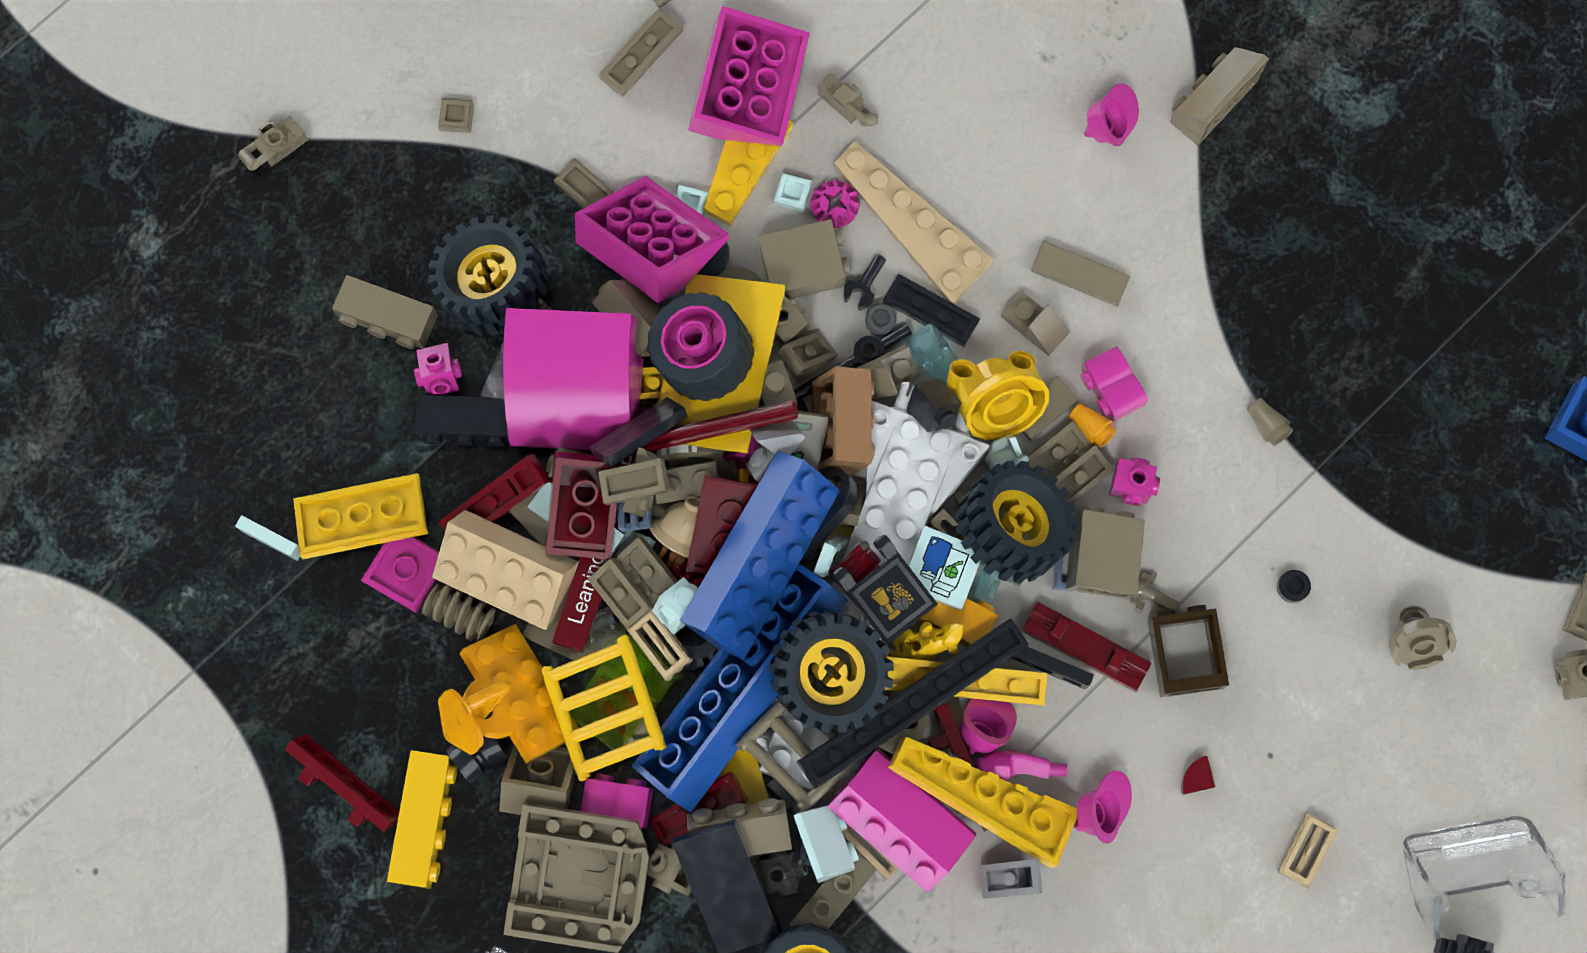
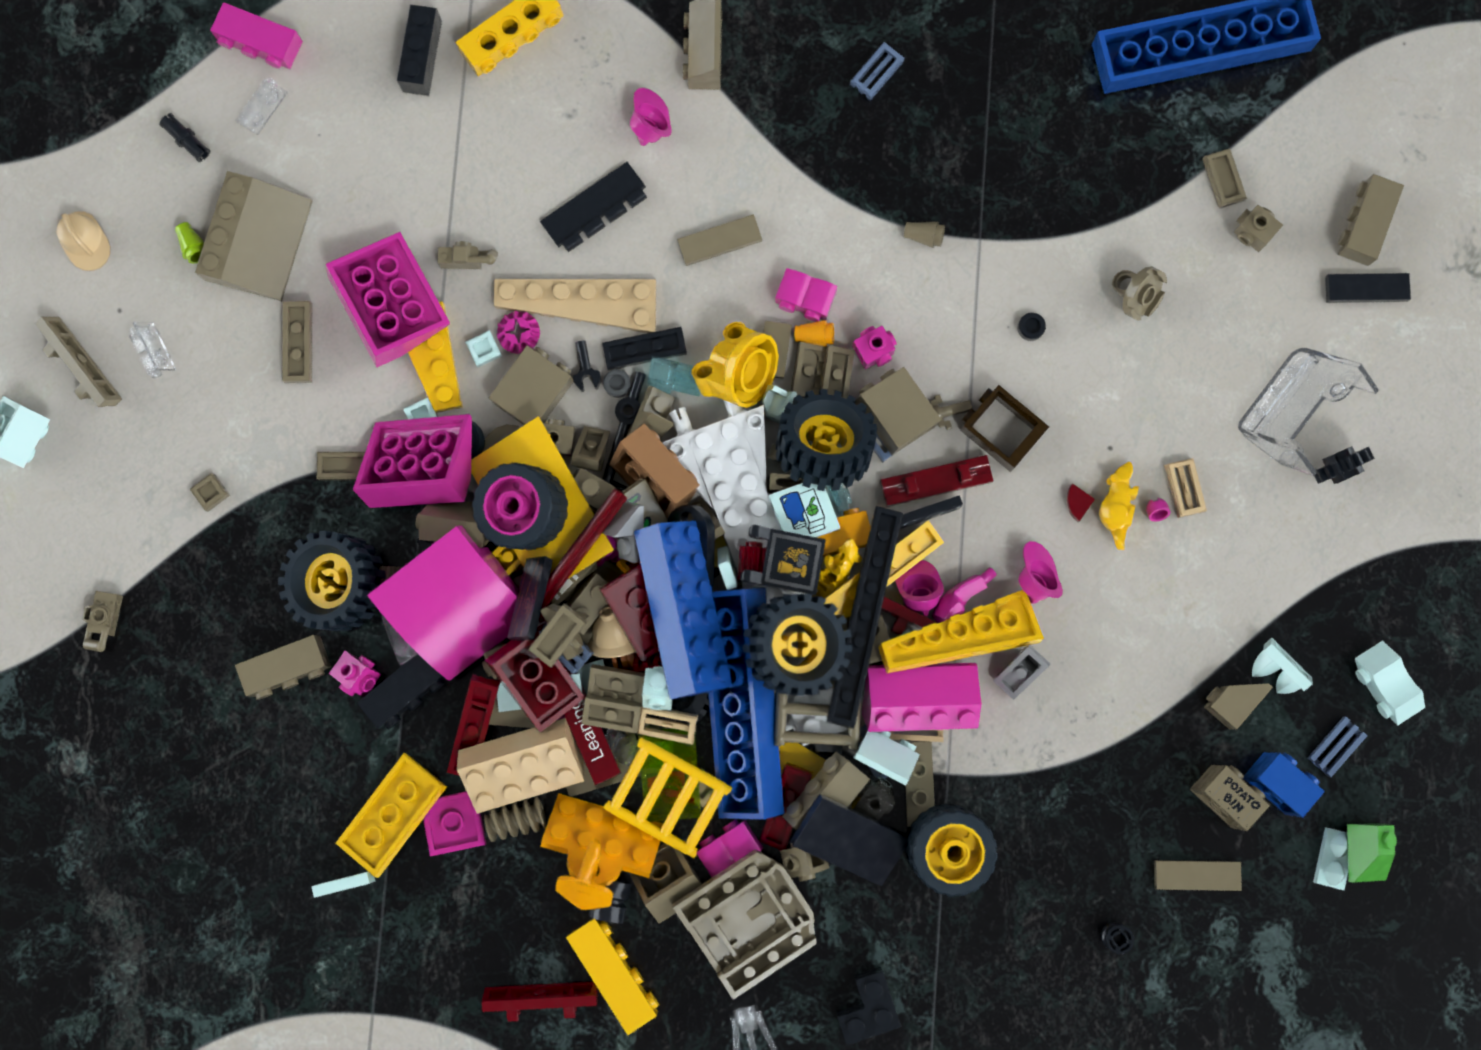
camera: 40 degrees left, 5 degrees up
(933, 405) = (705, 410): black brick -> none
(1001, 150) = (597, 201): none -> black windscreen
(1036, 323) = (719, 298): dark tan slope -> none
(1226, 811) = (1116, 510): none -> yellow animal
(1257, 847) = (1157, 510): none -> dark pink hinge
(1326, 250) = (863, 88): none -> sand blue tile

